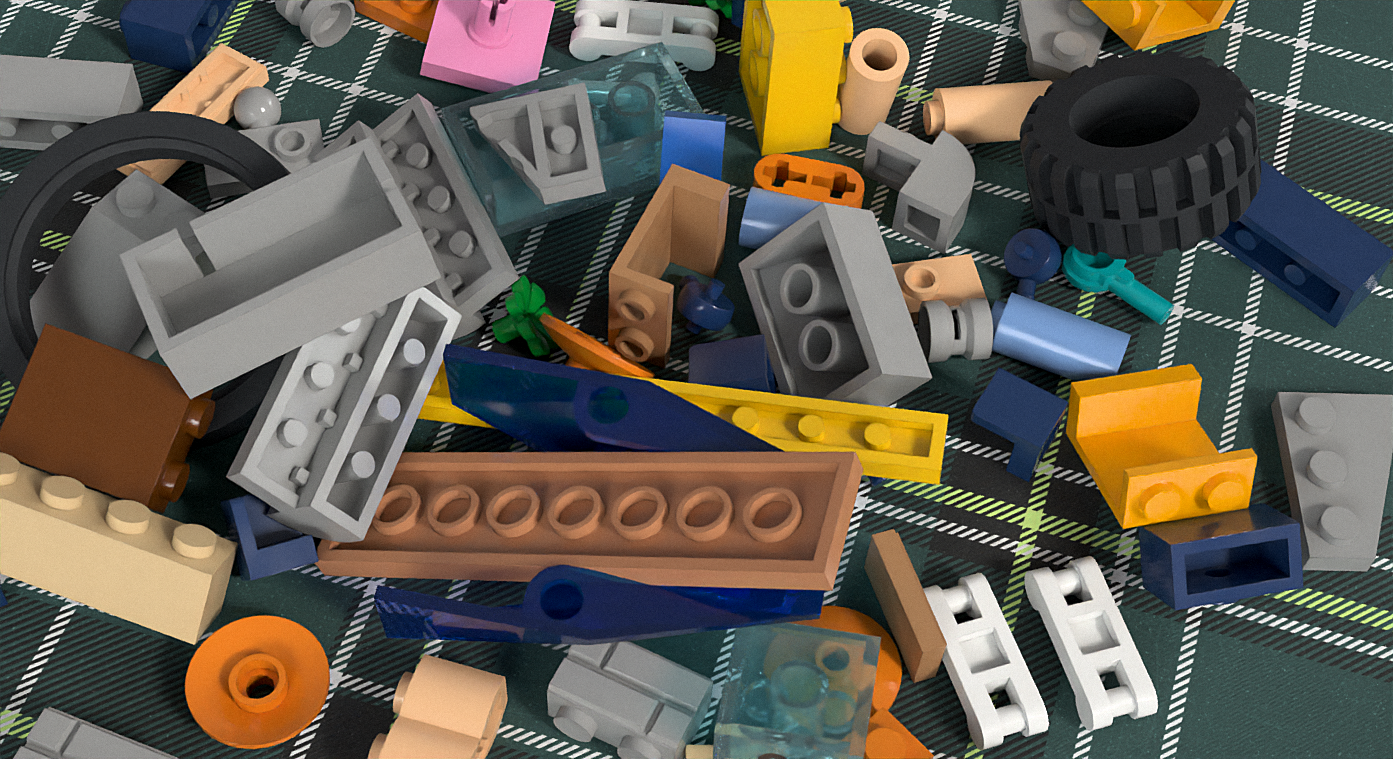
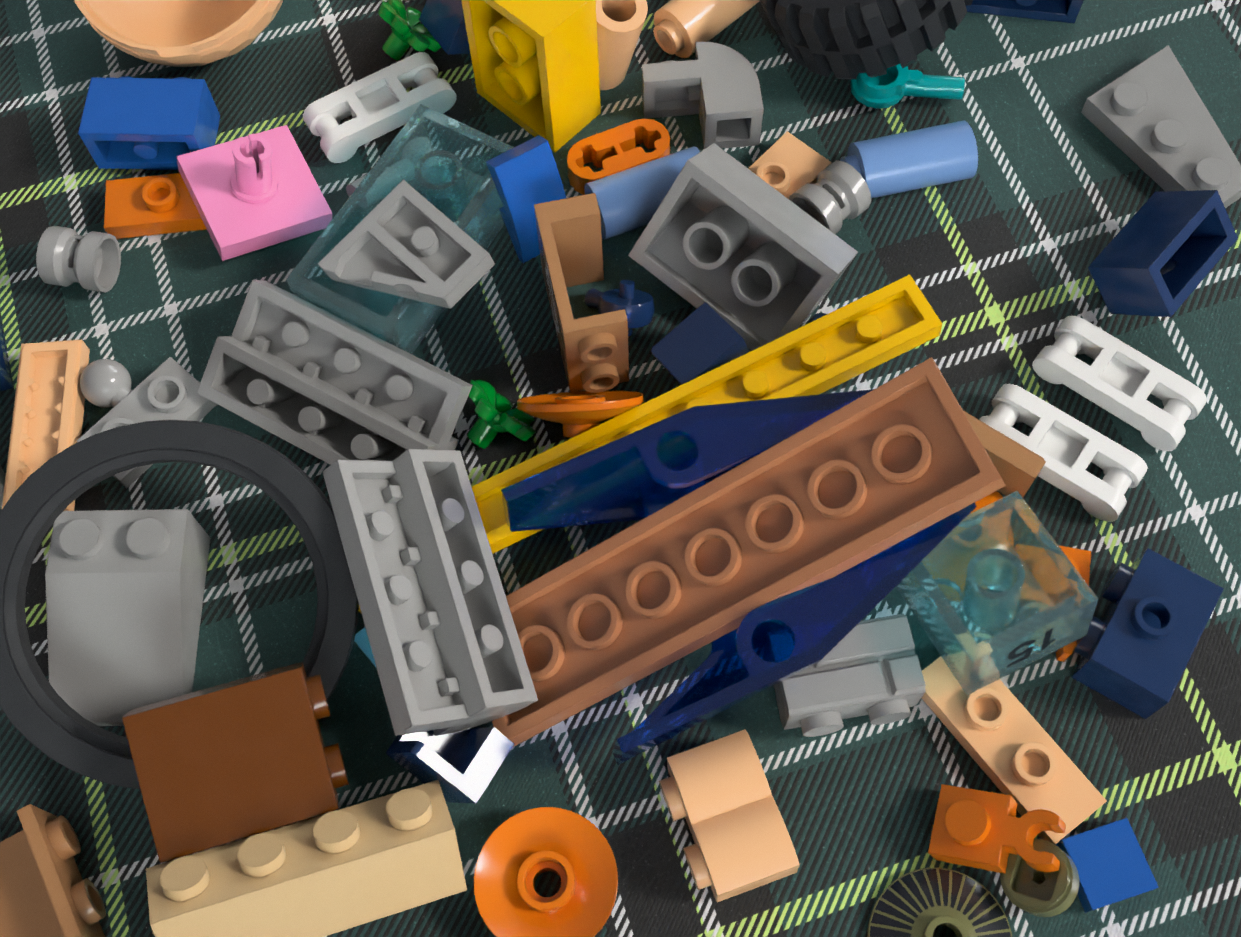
camera: 30 degrees left, 10 degrees up
(286, 268) = (307, 521): light grey piece -> none
(1022, 416) = (941, 238): dark blue panel -> none
(1032, 259) = (834, 107): dark blue piece -> none
(1150, 450) = (1050, 206): light orange panel -> none

